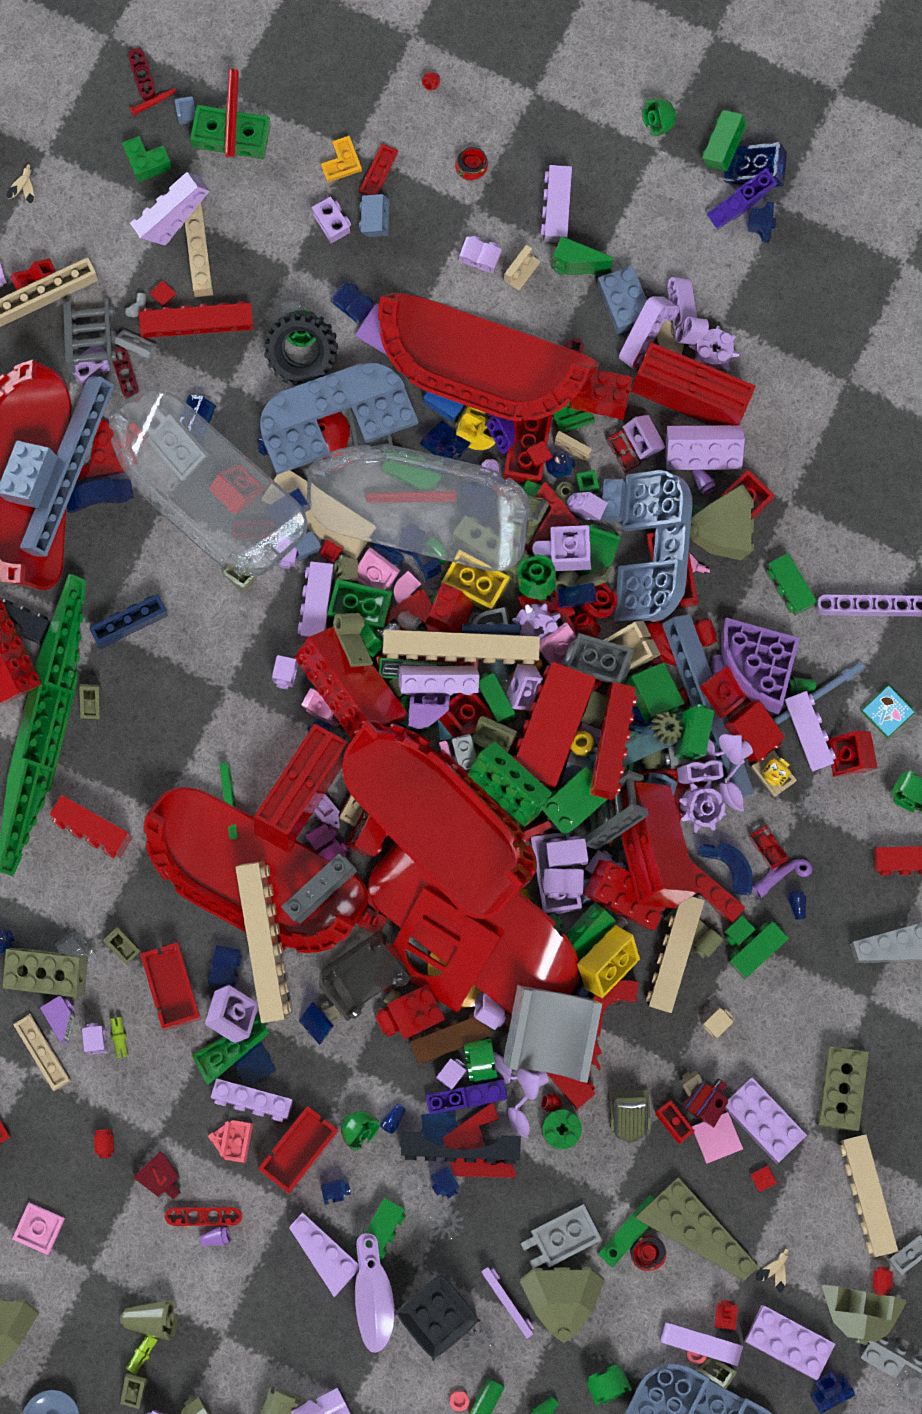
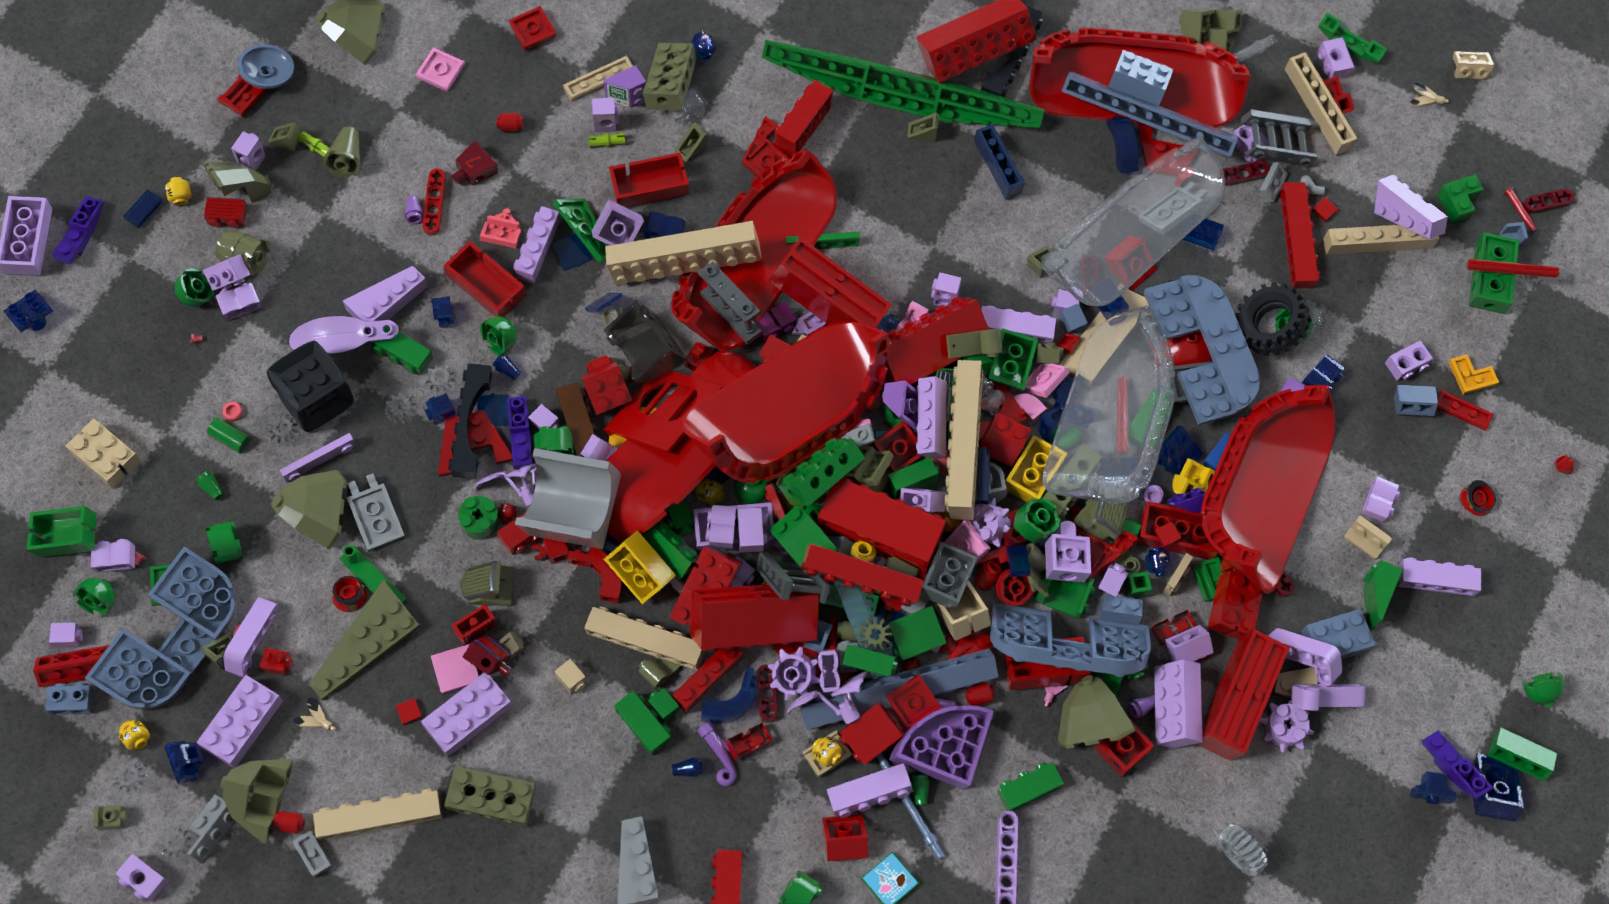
camera: 90 degrees right, 10 degrees down
(133, 866) = (761, 151): none -> red wing
(733, 837) = (762, 708): none -> dark red beam
(837, 392) = (1242, 850): none -> light grey gear

